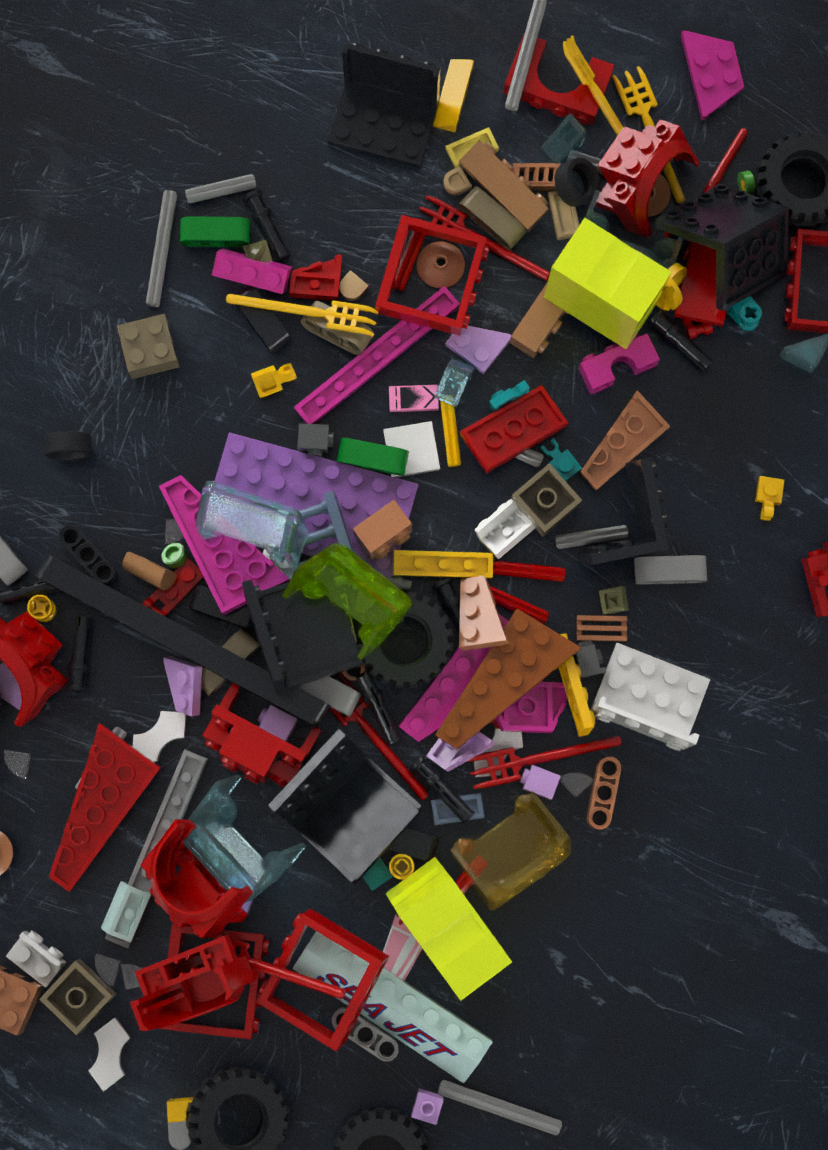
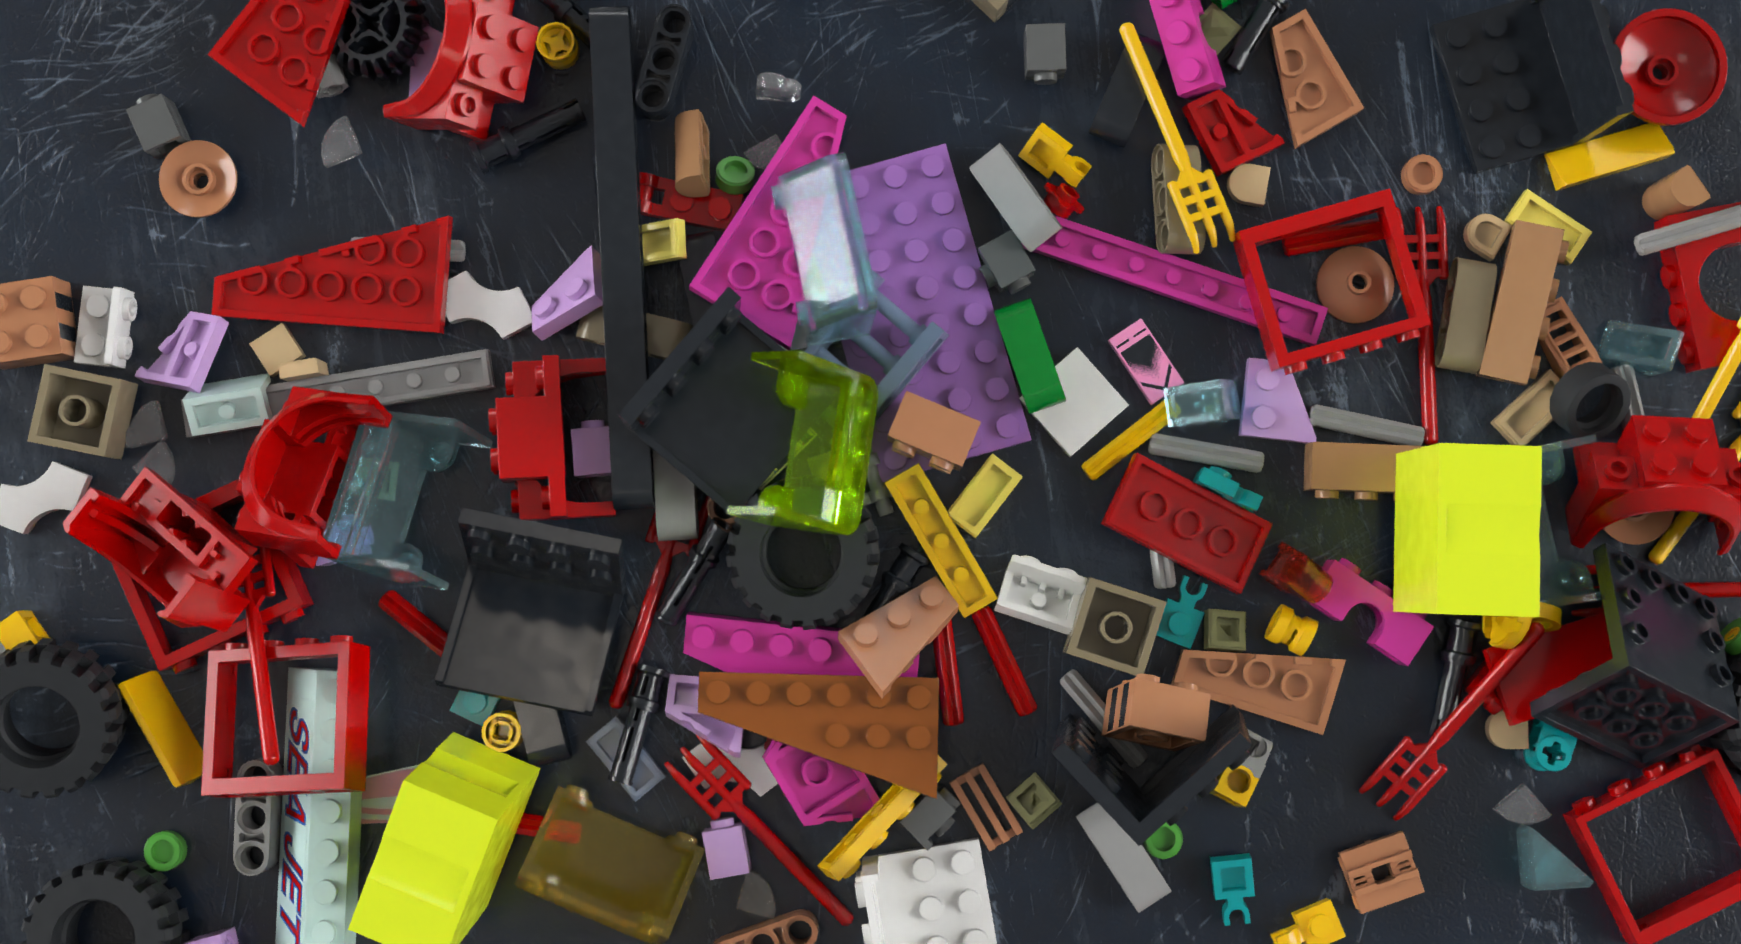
camera: 65 degrees right, 5 degrees up
(81, 919) = (187, 353): none -> lavender wing
(111, 867) = (277, 347): none -> tan tile
(131, 858) = (302, 369): none -> tan tile
(141, 503) = (777, 88): none -> clear tile
(187, 613) = (664, 241): none -> light yellow tile
(213, 350) = (1044, 52): none -> dark grey brick
(282, 412) = (1015, 197): none -> light grey beam
(284, 1058) = (164, 727): none -> yellow slope
(299, 388) = (1062, 200): none -> red plate
(312, 880) = (414, 621): none -> red axle
(317, 220) = (1310, 79): none -> nougat wing
(352, 1101) = (165, 850): none -> bright green tile
(403, 195) = (1421, 174): none -> nougat tile
(427, 23) = (1685, 53): none -> red dish
(432, 527) = (984, 495): none -> light yellow tile
(482, 396) = (1206, 453): none -> light grey axle
(495, 74) = (1674, 194): none -> medium nougat brick
(519, 304) = (1366, 426): none -> light grey axle
(576, 387) = (1297, 574): none -> clear red piece
(583, 444) = (1224, 630): none -> olive tile
(604, 409) = (1291, 630): none -> yellow wheel
(605, 504) = (1156, 713): none -> nougat brick
(667, 481) = (1238, 784): none -> yellow leg
(677, 544) = (1165, 841): none -> bright green tile
(711, 377) = (1427, 751): none -> red piece
(720, 520) = (1232, 881): none -> teal plate
(727, 332) = (1506, 736): none -> tan tile
(748, 446) = (1400, 884): none -> nougat piece
(770, 347) = (1522, 807): none -> clear tile

